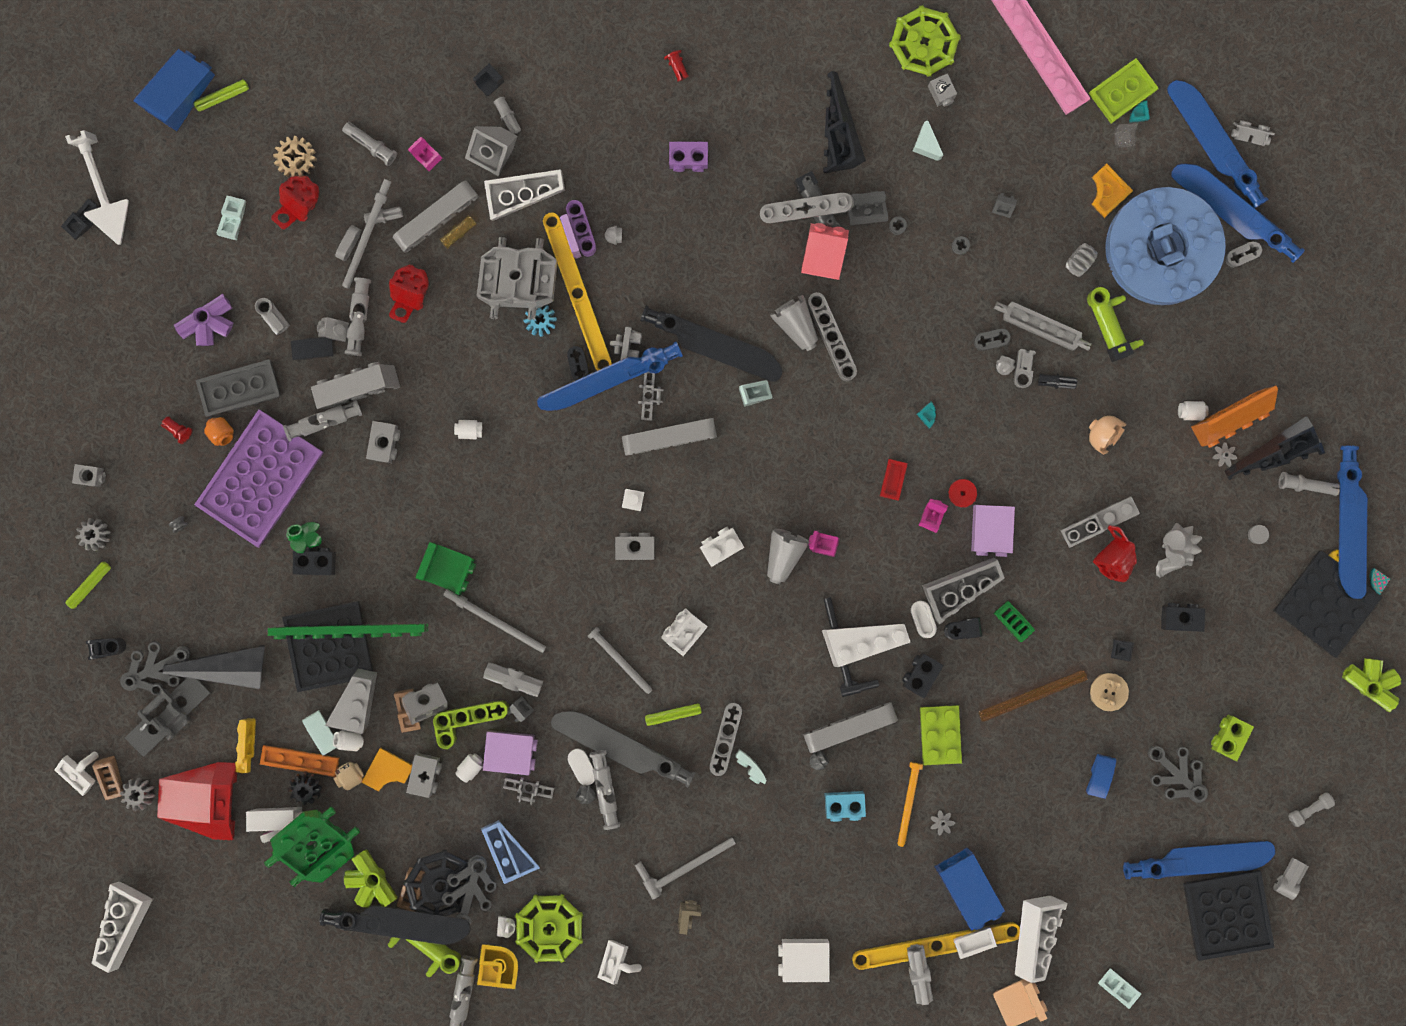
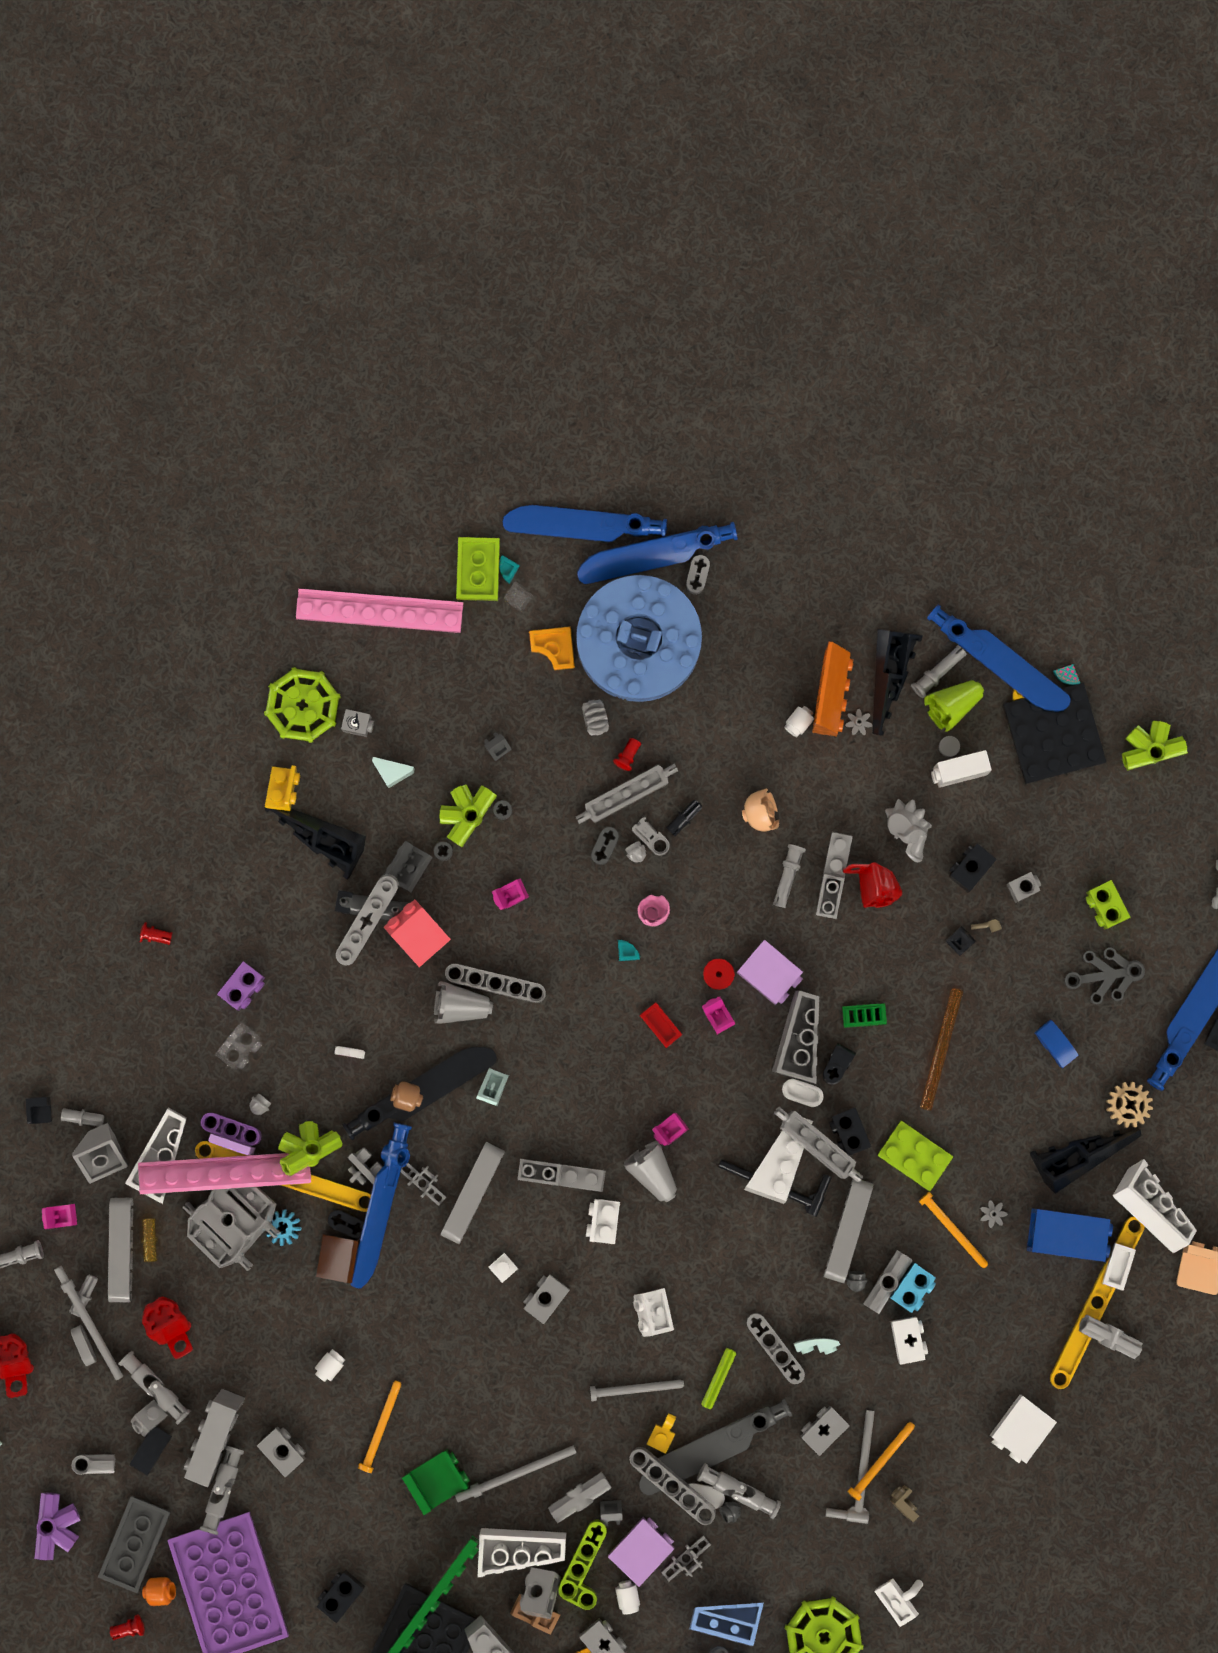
camera: 45 degrees left, 5 degrees down
(303, 536) = (310, 1587): green plate -> none
(418, 510) = (366, 1465): none -> light orange bar
(442, 662) = (518, 1549): none -> white wedge
(546, 246) = (216, 1174): none -> bright pink plate
(548, 376) = (337, 1259): none -> reddish brown tile
(576, 750) = (678, 1495): none -> light grey beam
(601, 705) = (661, 1435): none -> yellow plate
(605, 287) = (308, 1142): none -> lime piece
(644, 181) = (234, 1042): none -> clear brick
(667, 874) = (855, 1493): none -> light orange bar
(686, 823) = (835, 1428): none -> light grey brick
(701, 270) = (350, 1052): none -> white tile
(701, 335) = (406, 1096): none -> medium nougat head
(731, 490) = (561, 1175): none -> light grey slope
(807, 819) = (904, 1351): none -> white brick
(822, 784) = (879, 1294): none -> light grey piece
(852, 73) = (281, 788): none -> yellow bracket
(896, 659) = (818, 1144): none -> light grey plate
(904, 298) = (510, 894): none -> dark pink bracket
(943, 215) = (458, 814): none -> lime piece
(966, 409) = (649, 915): none -> bright pink hair
(1016, 848) = (1067, 1164): none -> black wedge
(1069, 305) = (627, 755): none -> red pin
(1082, 486) = (790, 866): none -> light grey pin
(1095, 871) = (1123, 1097): none -> tan gear
(1109, 324) = (672, 736): lime piece -> none
(1112, 683) = (982, 972): tan plate -> none
(1152, 665) = (994, 925): none -> dark tan hand
(1190, 663) = (1017, 893): none -> light grey brick
(1244, 130) = (592, 491): light grey hinge -> none
(1251, 555) = (961, 769): none -> white brick
(1293, 512) = (953, 703): none -> lime cone

